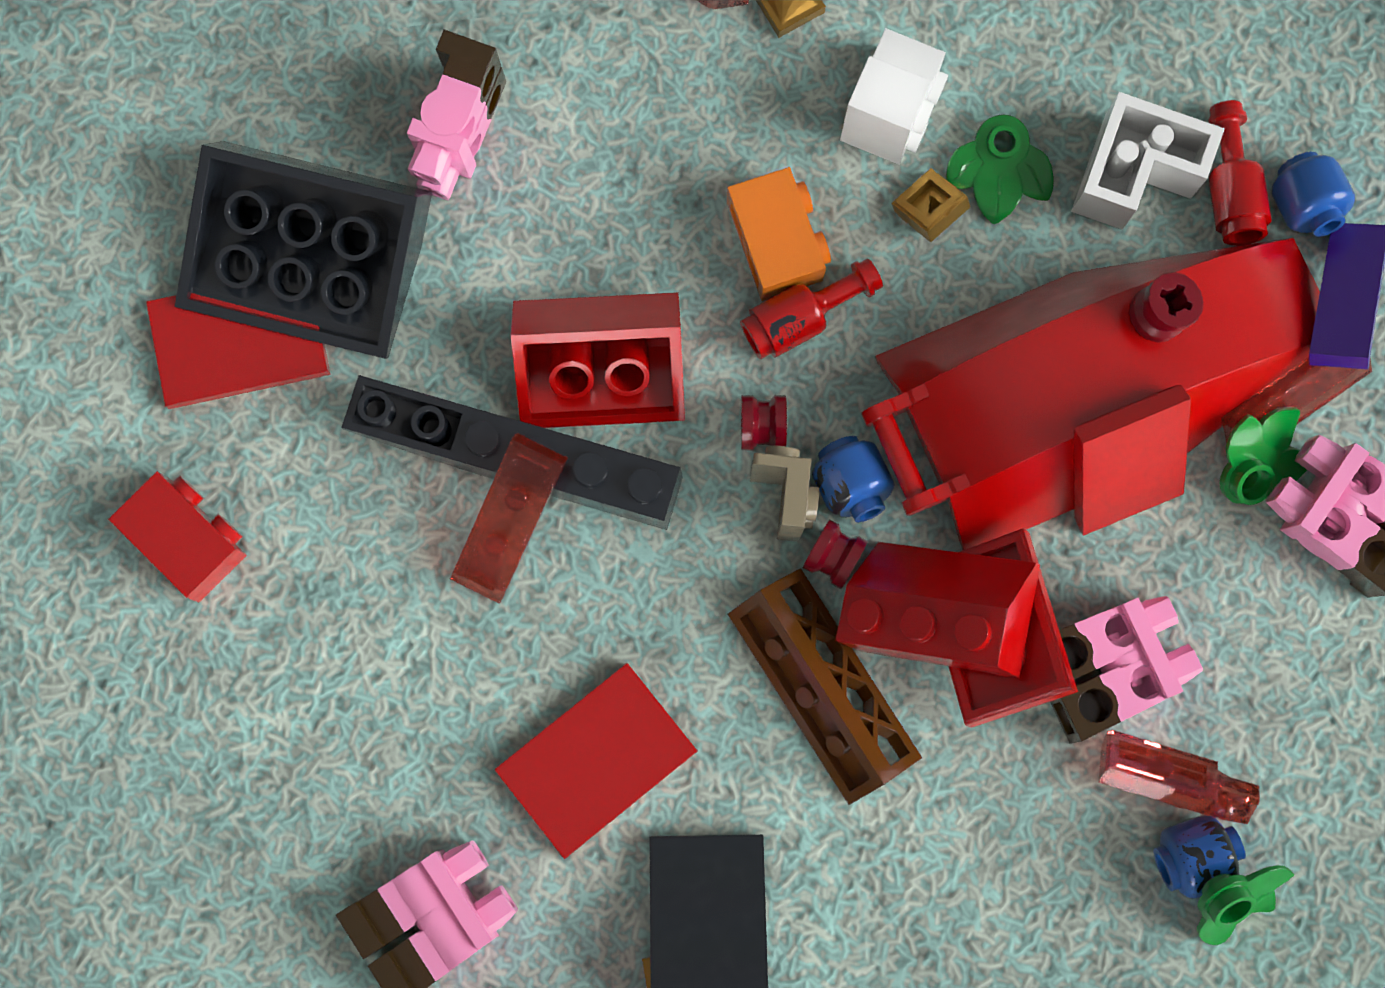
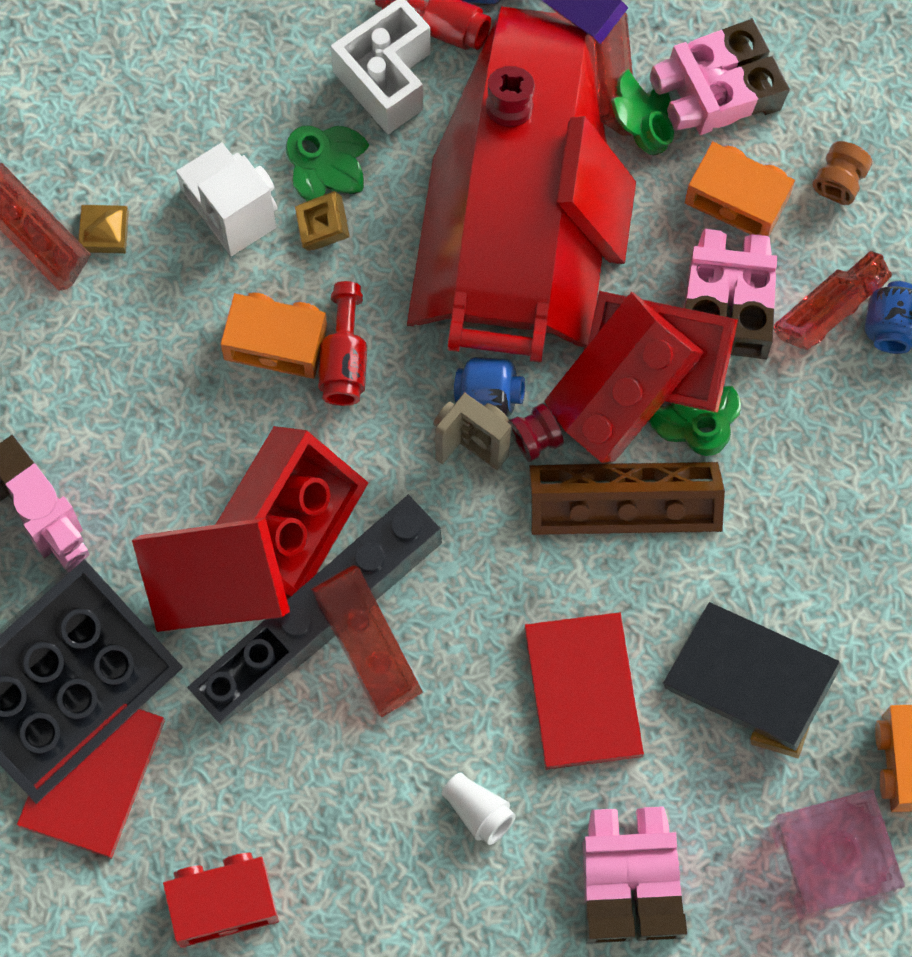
camera: 60 degrees left, 10 degrees down
(412, 730) = (480, 810): none -> white cone
(479, 328) = (211, 575): none -> red tile
(763, 421) = (407, 425): dark red wheel -> none
(938, 700) = (683, 423): none -> green plate
(1240, 608) = (739, 190): none -> orange brick
(1328, 705) = (844, 169): none -> dark orange wheel

